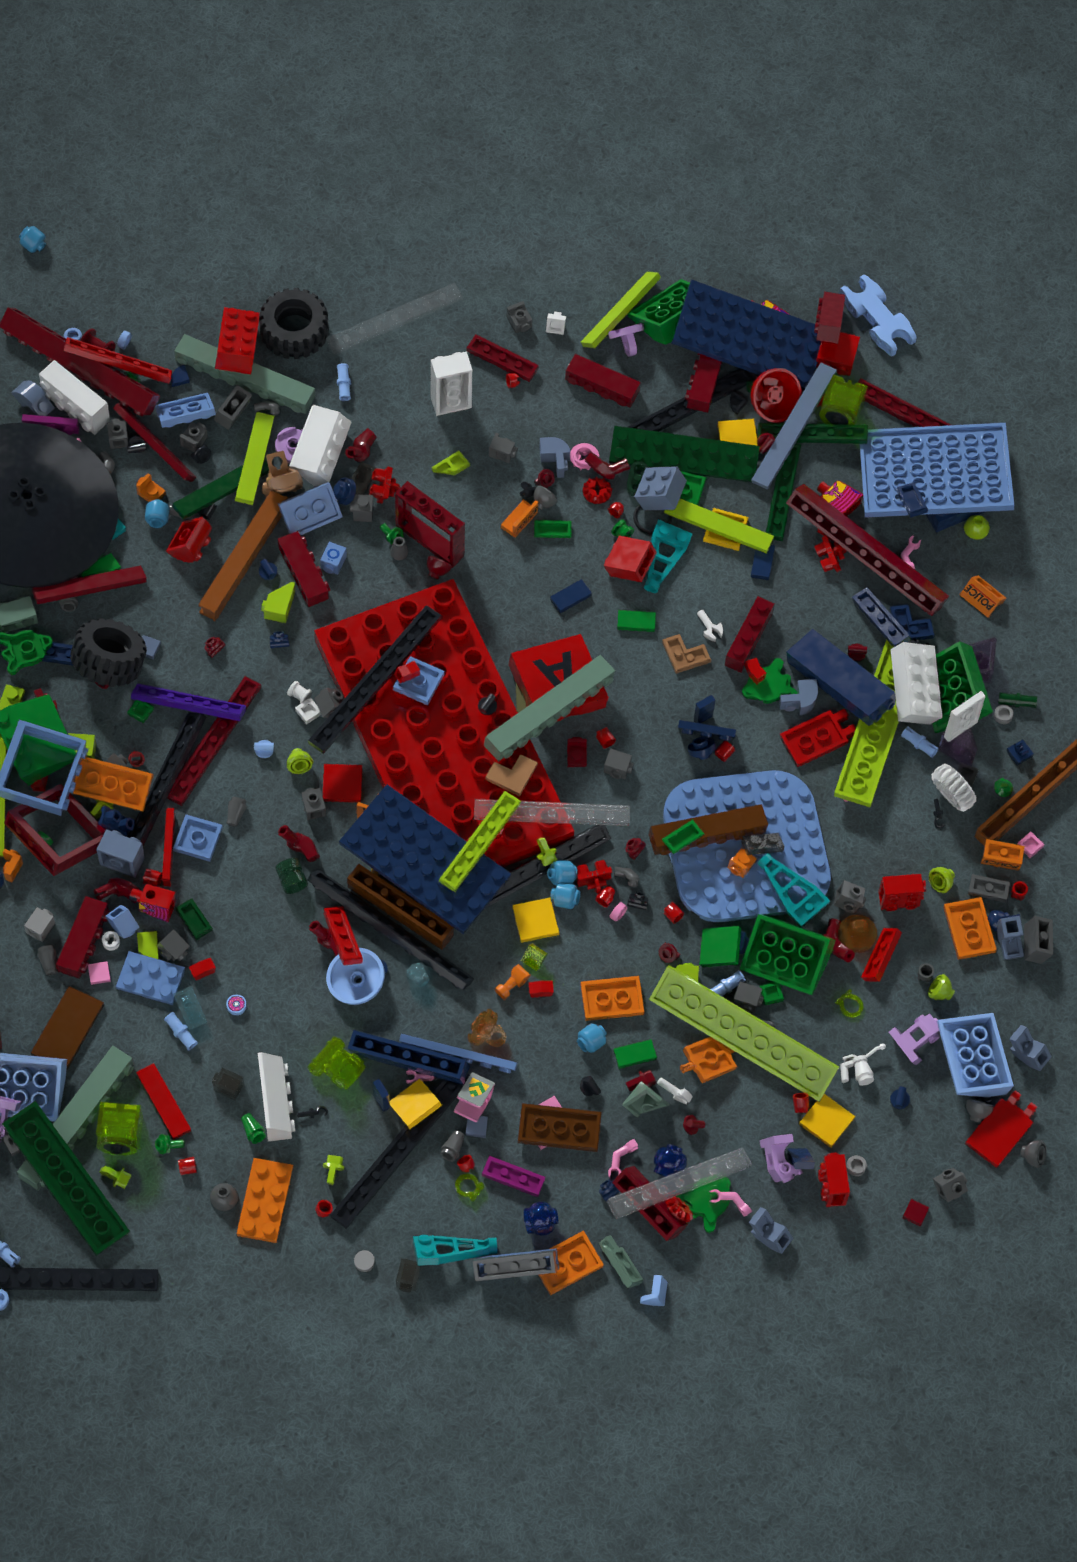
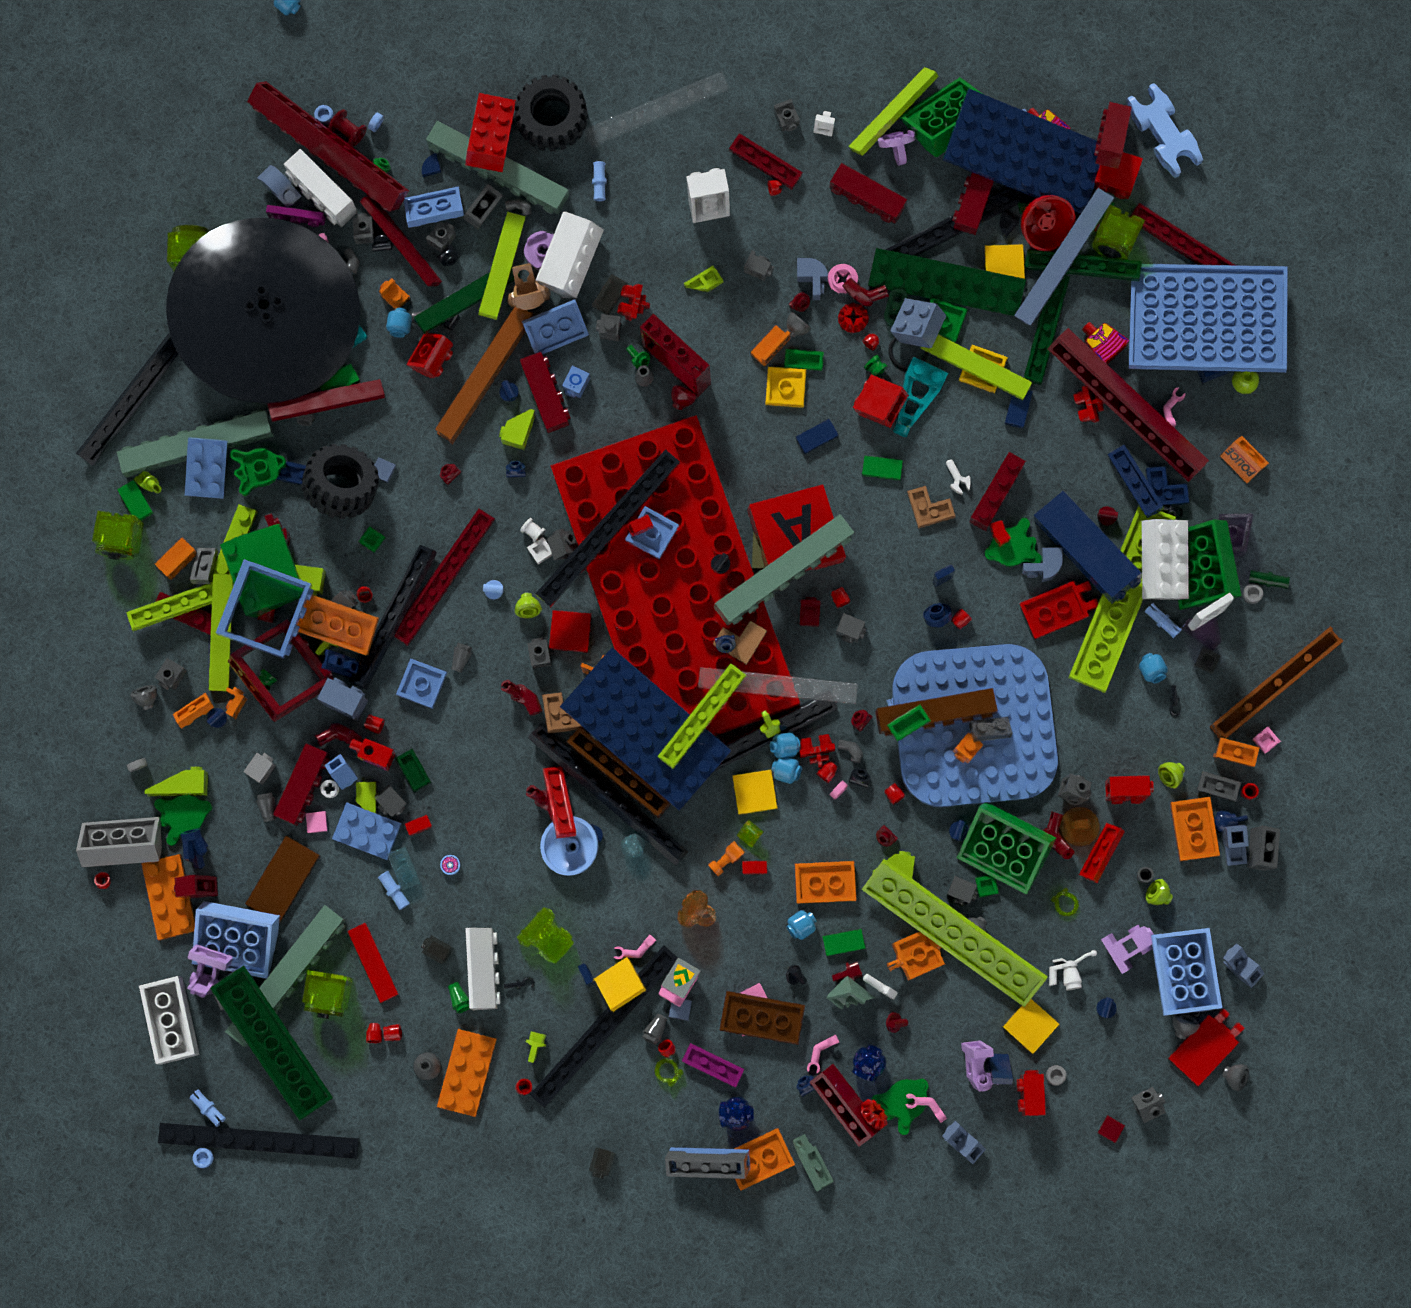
camera: 15 degrees right, 15 degrees up
(118, 360) = (366, 148): red tile -> none
(120, 1178) = (327, 1040): lime piece -> none
(164, 1144) = (371, 1008): green plate -> none
(168, 847) = (391, 696): red tile -> none
(168, 1168) = (374, 1033): none -> red hose
(188, 702) = (419, 535): dark purple tile -> none
(291, 875) = (515, 738): clear green wheel -> none
(334, 861) = (556, 718): none -> medium nougat tile
(345, 491) = (591, 309): dark blue plate -> none
(361, 446) = (612, 256): dark red arm -> none
(364, 1261) = (560, 1142): light grey tile -> none
(408, 1057) = (616, 937): dark blue brick -> none
(427, 1254) = (621, 1141): teal plate -> none
(470, 1056) = (674, 934): medium blue plate -> none
(498, 774) = (725, 643): none -> dark blue plate
(528, 490) = (781, 314): black plate -> none
(537, 554) = (785, 387): none -> yellow tile
(658, 1294) = (847, 1196): light blue tile -> none
(679, 1183) = (876, 1089): clear tile -> none
(706, 730) = (944, 598): dark blue plate -> none
(720, 946) = (938, 834): green tile -> none
(726, 985) = (941, 876): light blue pin -> none
(765, 442) = (1032, 273): dark red plate -> none
(801, 1102) = (1006, 1007): red hose -> none
(808, 906) = (1033, 798): teal plate -> none
(912, 500) = (1179, 354): dark blue tile -> none
(915, 784) = (1153, 668): none -> dark azure head
(953, 787) = (1192, 678): white gear -> none
(1003, 787) = (1244, 676): green plate -> none
(1020, 752) = (1265, 637): dark blue tile -> none

